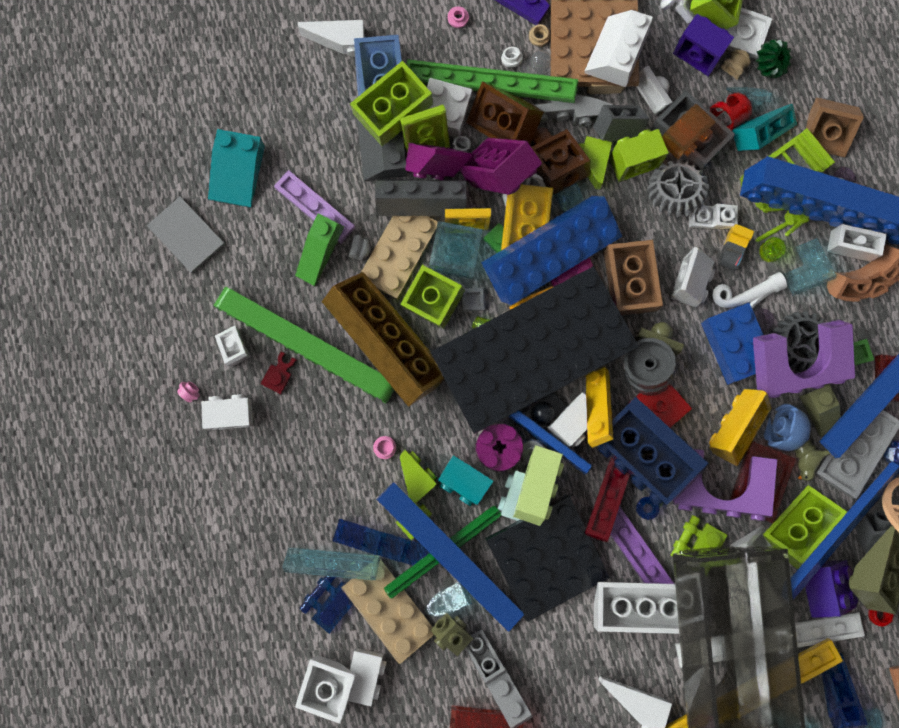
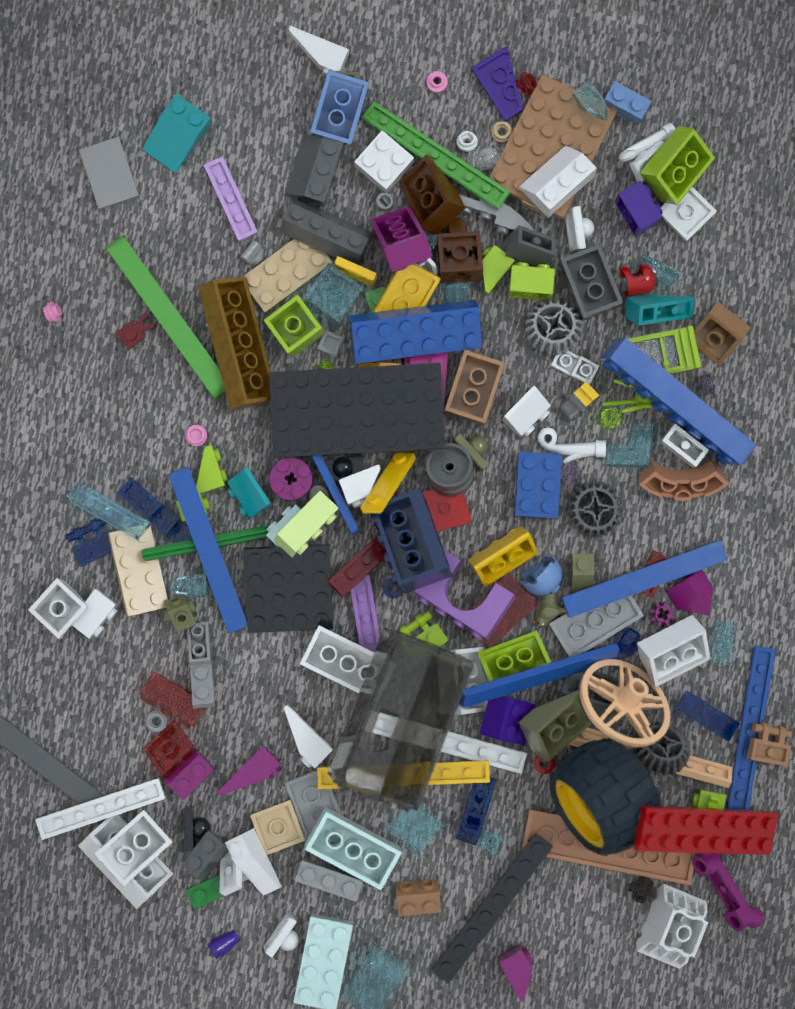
camera: 25 degrees right, 5 degrees up
(227, 413) = (76, 345): white brick -> none
(232, 347) = (105, 290): white slope -> none
(318, 248) = (217, 238): bright green slope -> none
(388, 100) = (334, 143): lime brick -> none
(426, 128) = (353, 181): lime tile -> none
(435, 161) = (351, 207): magenta slope -> none
(687, 131) = (578, 283): clear orange brick -> none
(737, 62) = (664, 237): tan brick -> none
(774, 58) = (697, 249): dark green gear -> none
(832, 365) = (602, 540): medium lavender arch -> none
(862, 352) = (638, 540): bright green plate -> none

